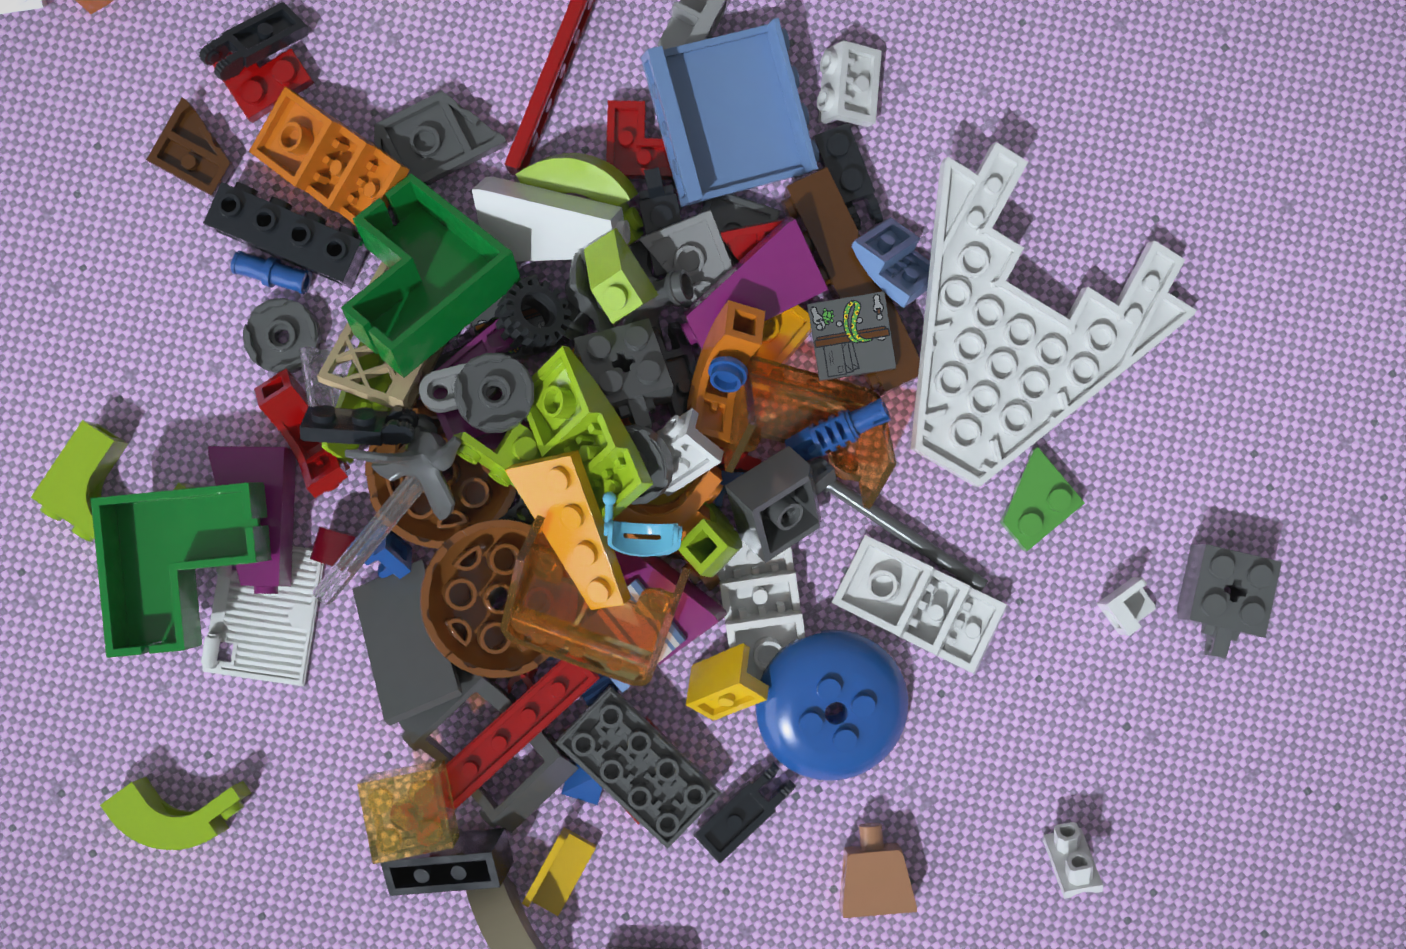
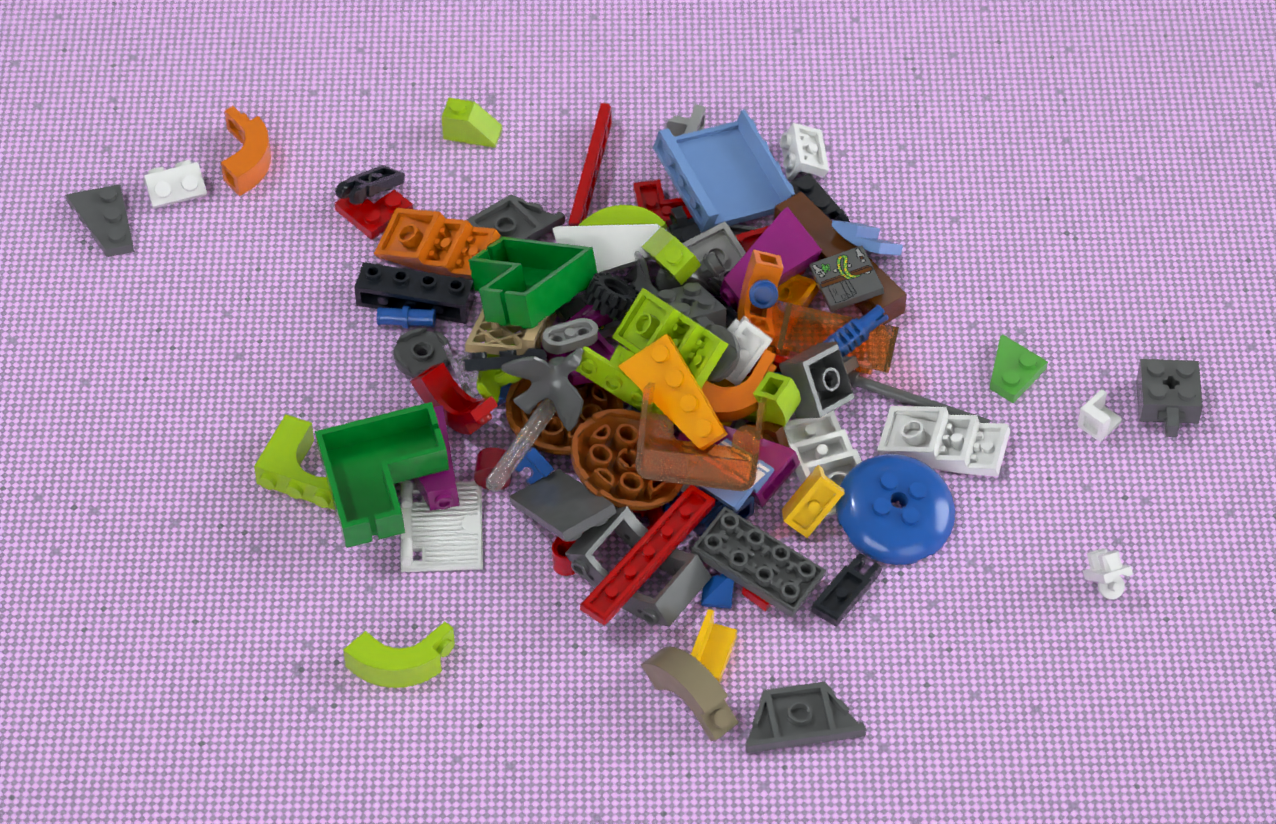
camera: 10 degrees left, 35 degrees down
(191, 151) = (332, 258): reddish brown wing -> none
(408, 811) = (592, 589): clear yellow brick -> none
(476, 862) = (625, 641): black brick -> none
(490, 372) = (598, 327): dark grey plate -> none
(670, 534) = (727, 395): medium azure helmet -> none
(874, 877) = (961, 612): nougat torso -> none
(998, 360) = (958, 288): white wing -> none

